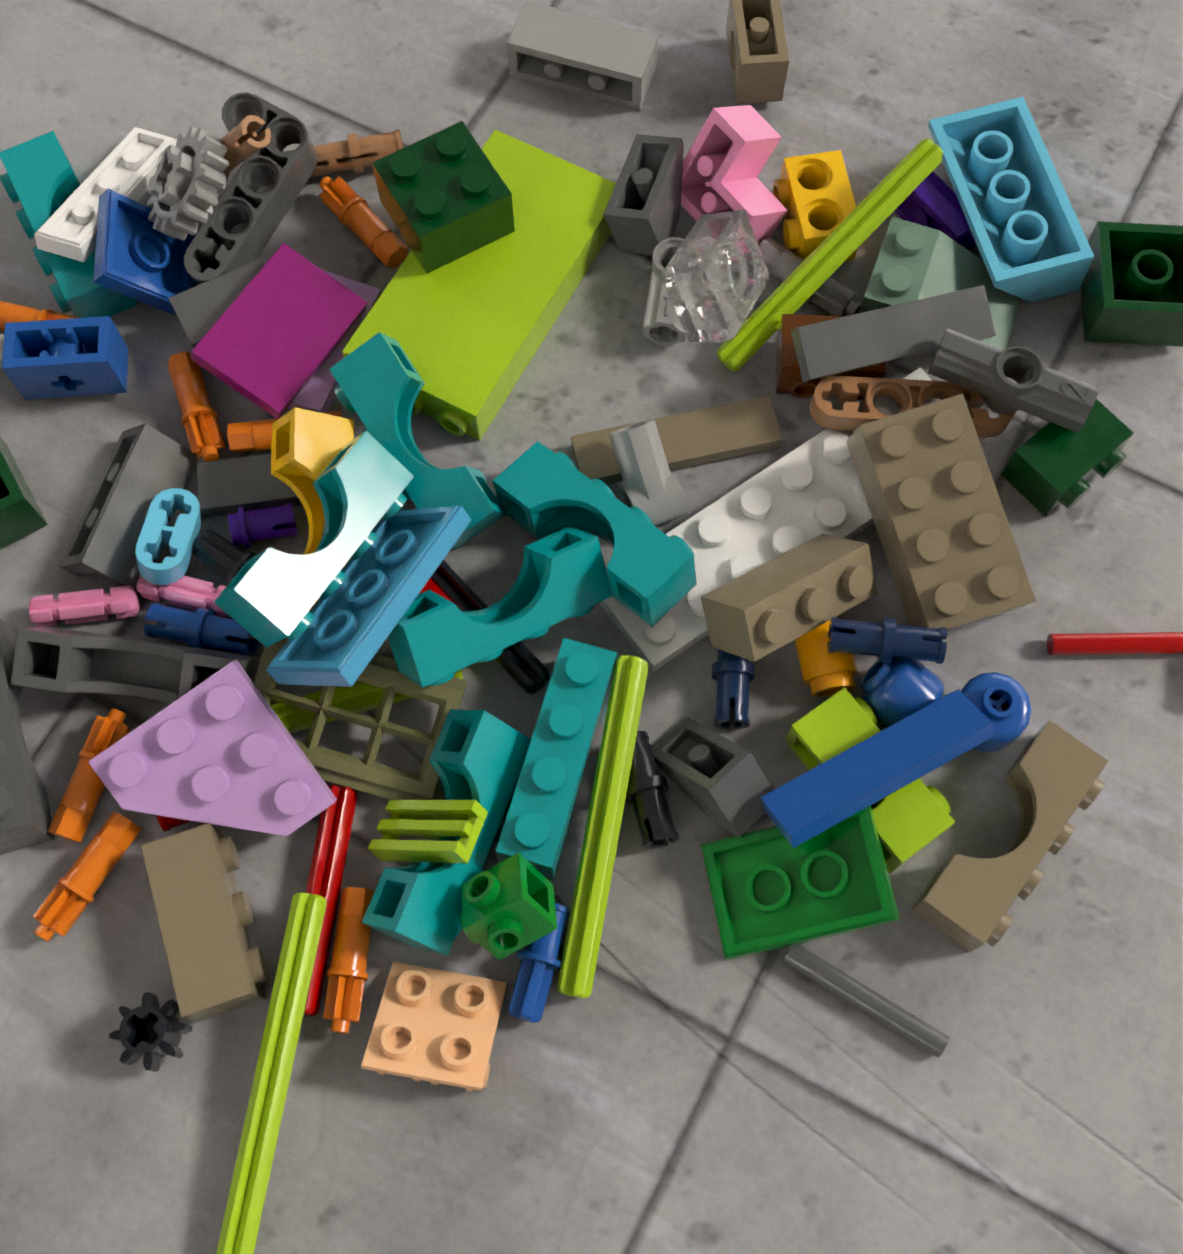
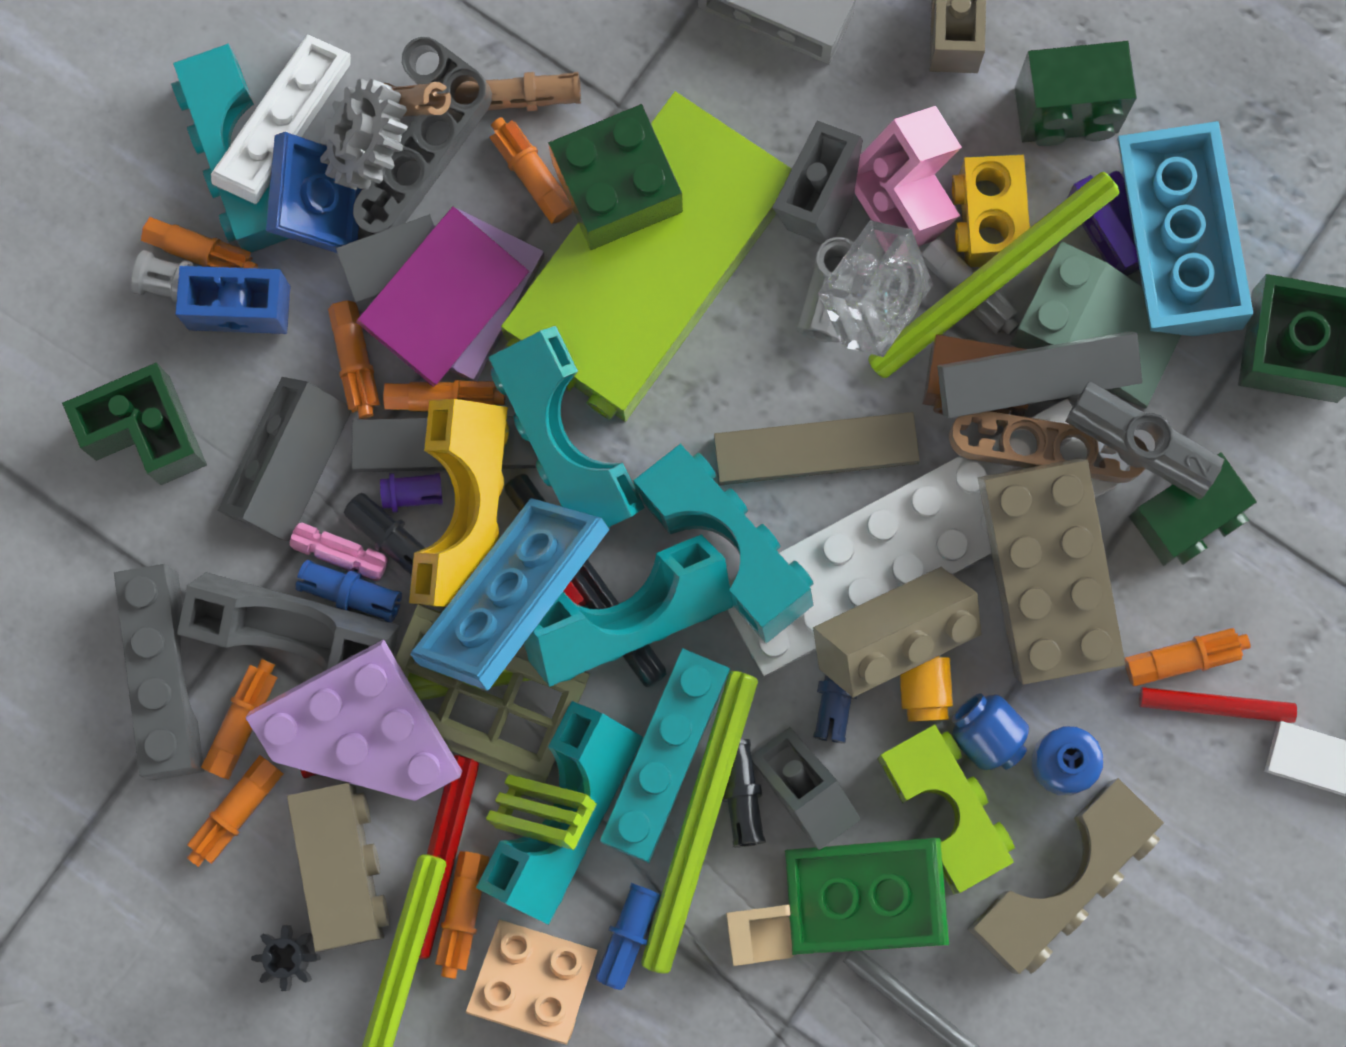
camera: 10 degrees right, 10 degrees up
(84, 606) = (239, 553): bright pink axle -> none
(158, 533) = (312, 492): medium azure beam -> none
(279, 588) = (506, 487): arch -> none
(508, 907) = (605, 890): green brick -> none
(647, 473) = (783, 499): light grey piece -> none
(685, 939) = (760, 935): none -> tan panel
(876, 767) = (950, 807): blue tile -> none
(880, 92) = (1075, 92): none -> dark green brick
(887, 640) = (979, 687): dark blue pin -> none
(1099, 594) = (1185, 657): none -> orange piece

